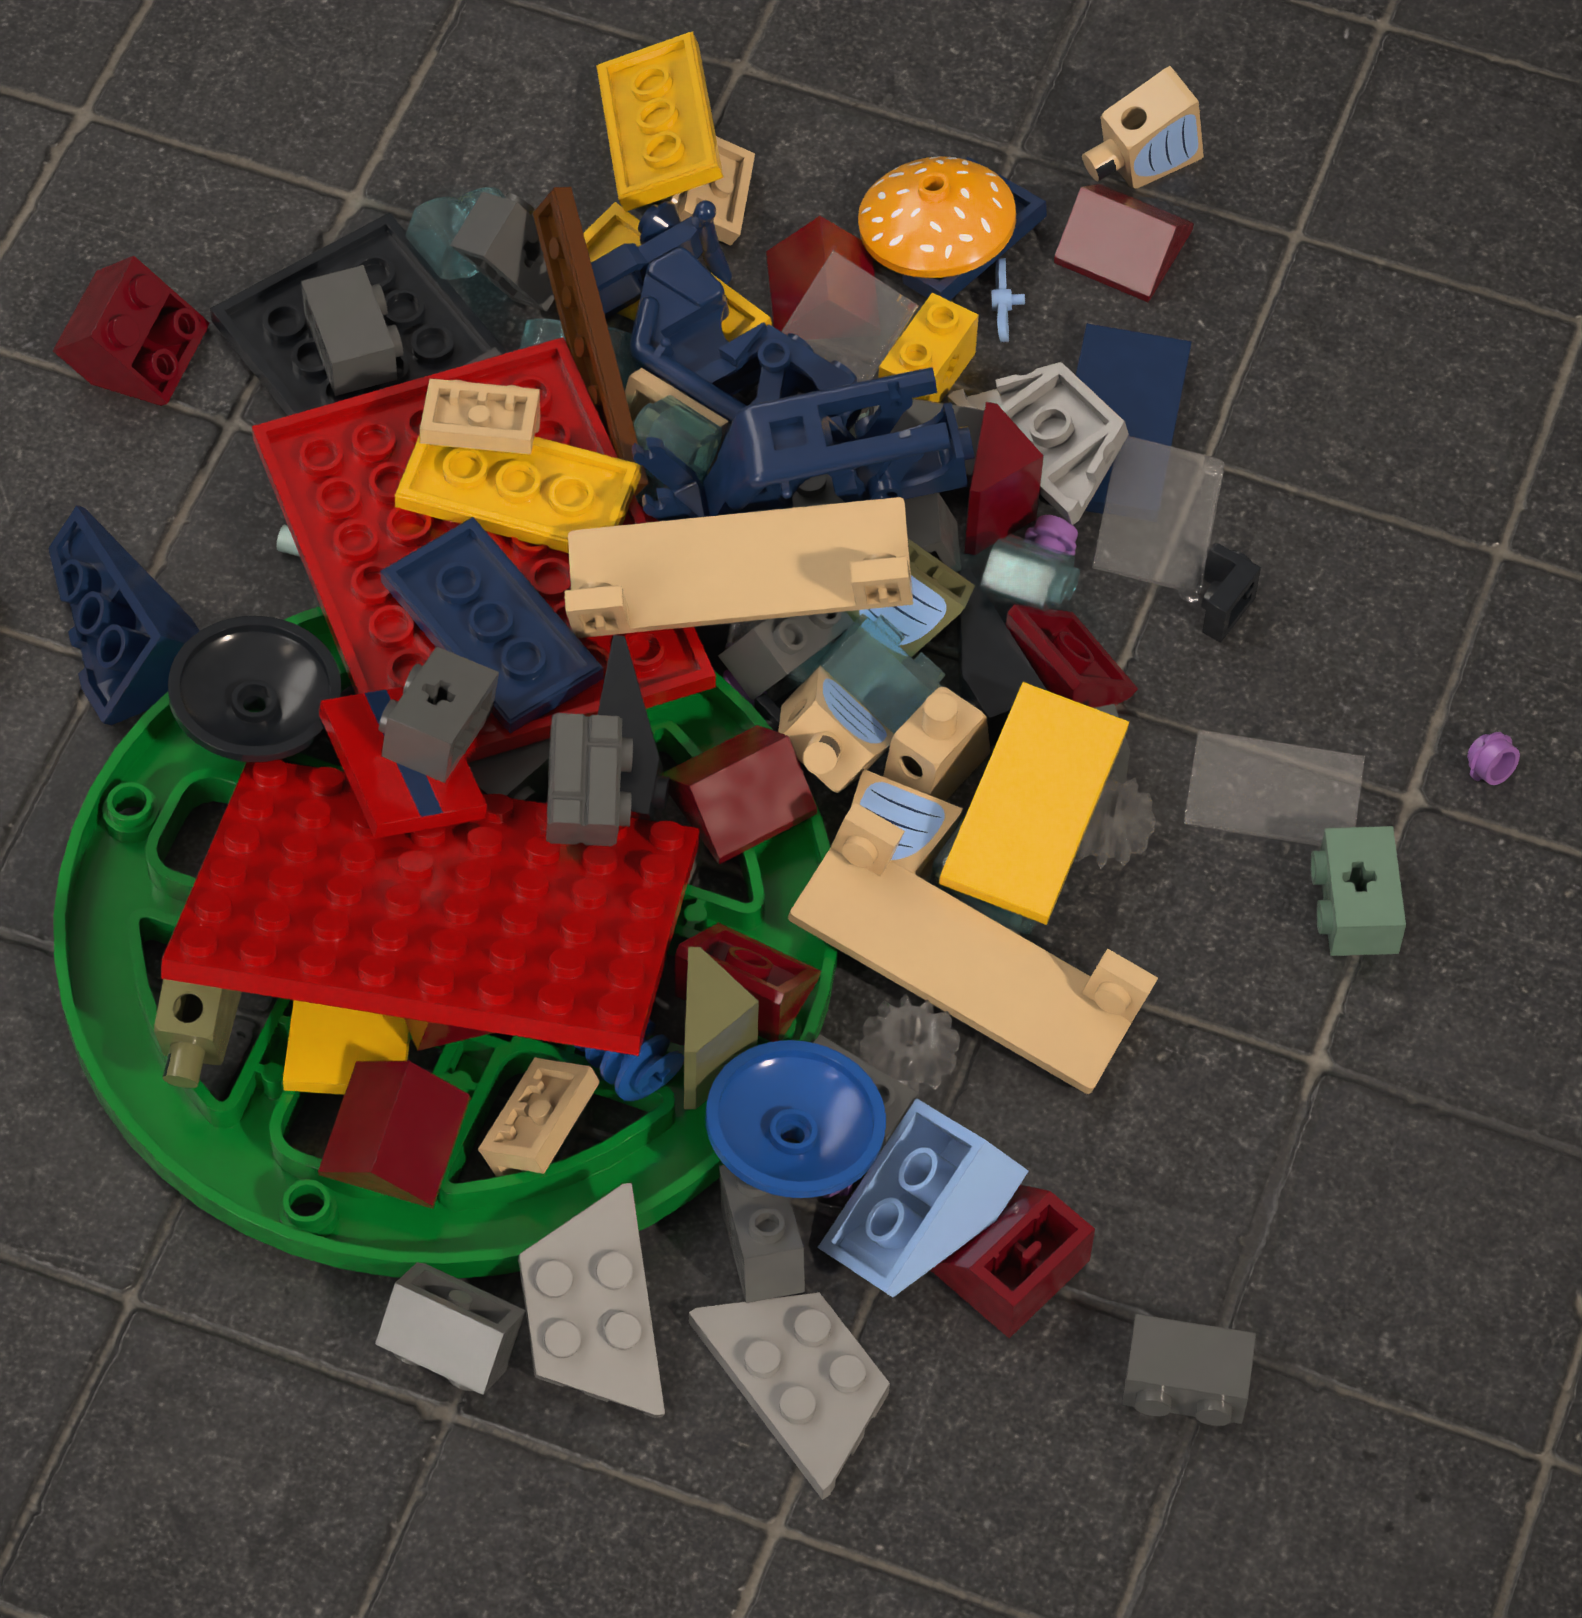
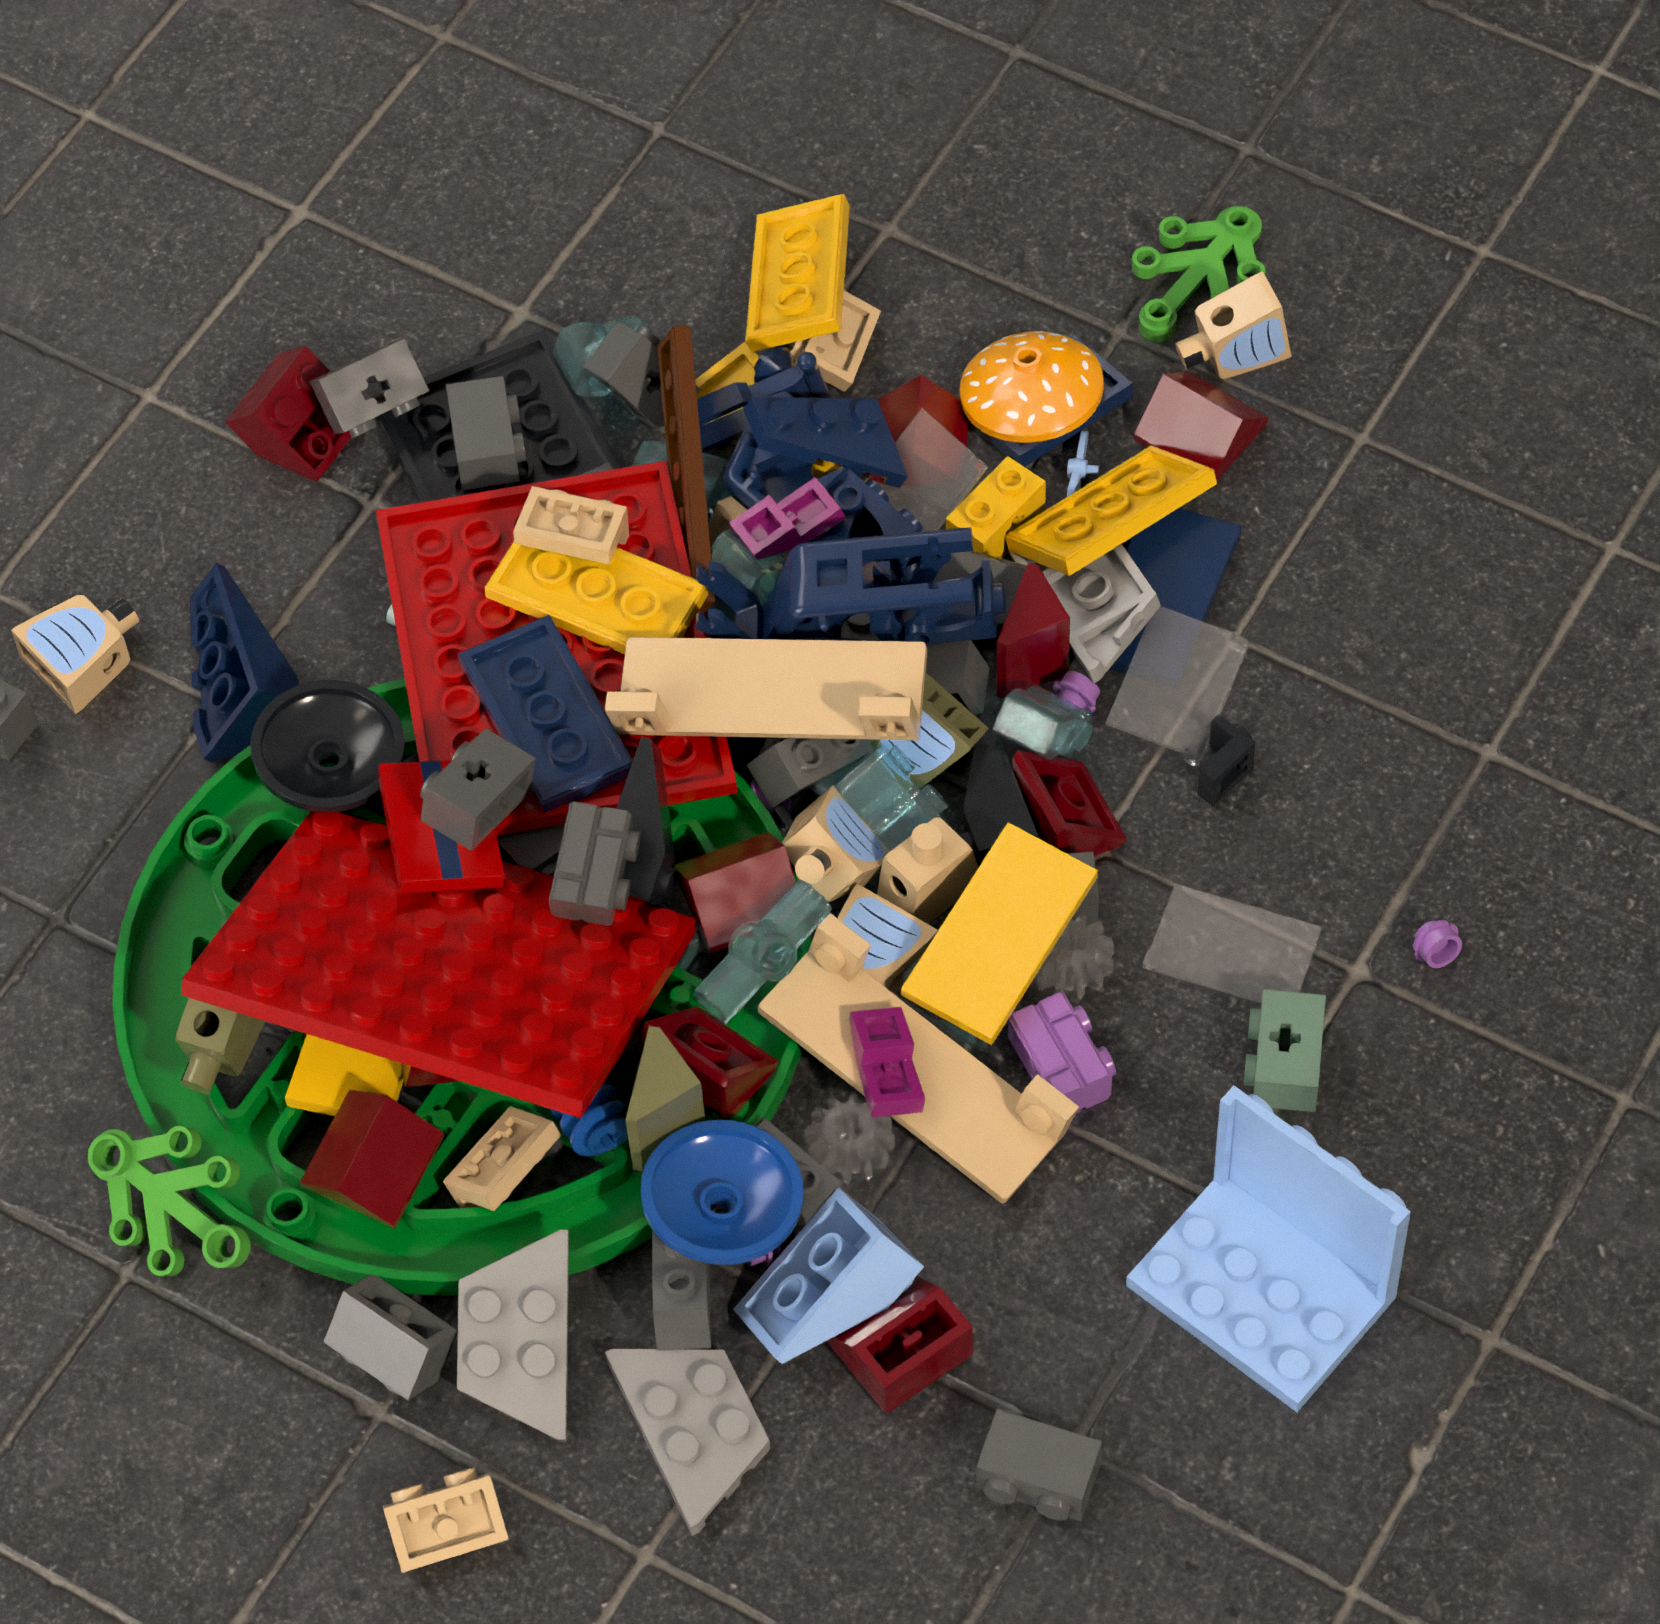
camera: 15 degrees right, 0 degrees up
(161, 1207) = (163, 1196): none -> bright green plant
(185, 303) = (342, 388): none -> brick
(550, 1520) = (444, 1520): none -> tan bracket
(717, 388) = (778, 527): none -> magenta slope
(738, 283) = (829, 429): none -> dark blue wing
(782, 853) = (762, 951): none -> clear light blue piece
(937, 956) = (885, 1062): none -> magenta slope
(1052, 338) = (1110, 510): none -> yellow tile
(1114, 913) = (1057, 1046): none -> medium lavender brick
(1115, 29) = (1198, 264): none -> bright green plant
(1402, 1103) = (1278, 1254): none -> light blue bracket

